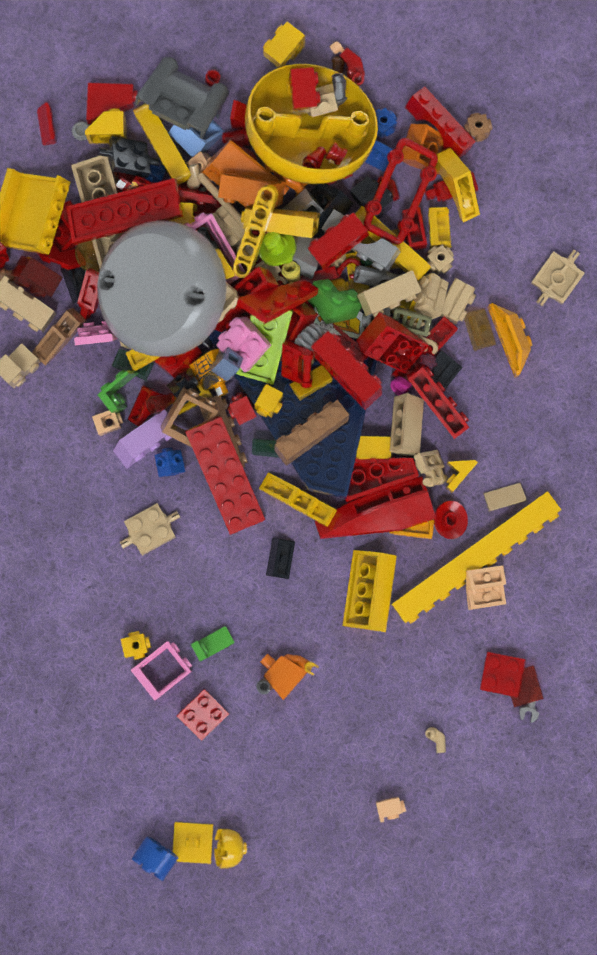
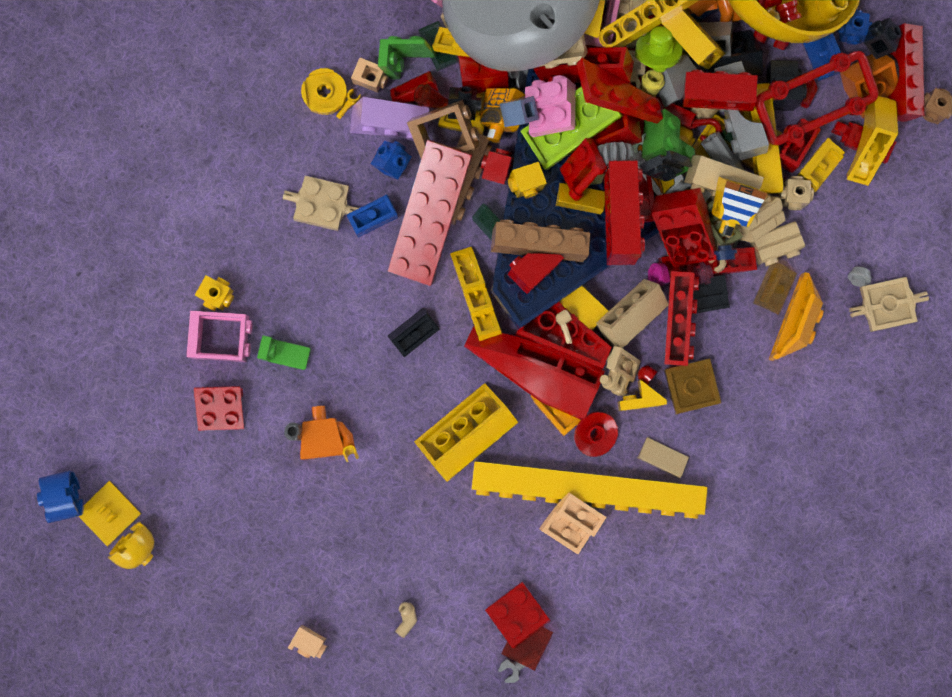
camera: 40 degrees right, 0 degrees up
(77, 460) = (313, 84): none -> yellow plate
(109, 452) = (350, 102): none -> yellow hand
(189, 508) = (372, 216): none -> blue slope
(322, 454) = (532, 269): none -> red slope
(347, 318) = (666, 166): none -> black plate
(367, 468) = (563, 318): none -> tan hand
(407, 116) = (882, 38): none -> black brick
(410, 302) = (736, 204): none -> torso
(430, 337) = (725, 253): none -> dark blue plate
(448, 454) = (646, 374): none -> red hinge
(483, 436) = (692, 386): none -> pearl gold plate
(525, 276) = (860, 276): none -> light grey plate

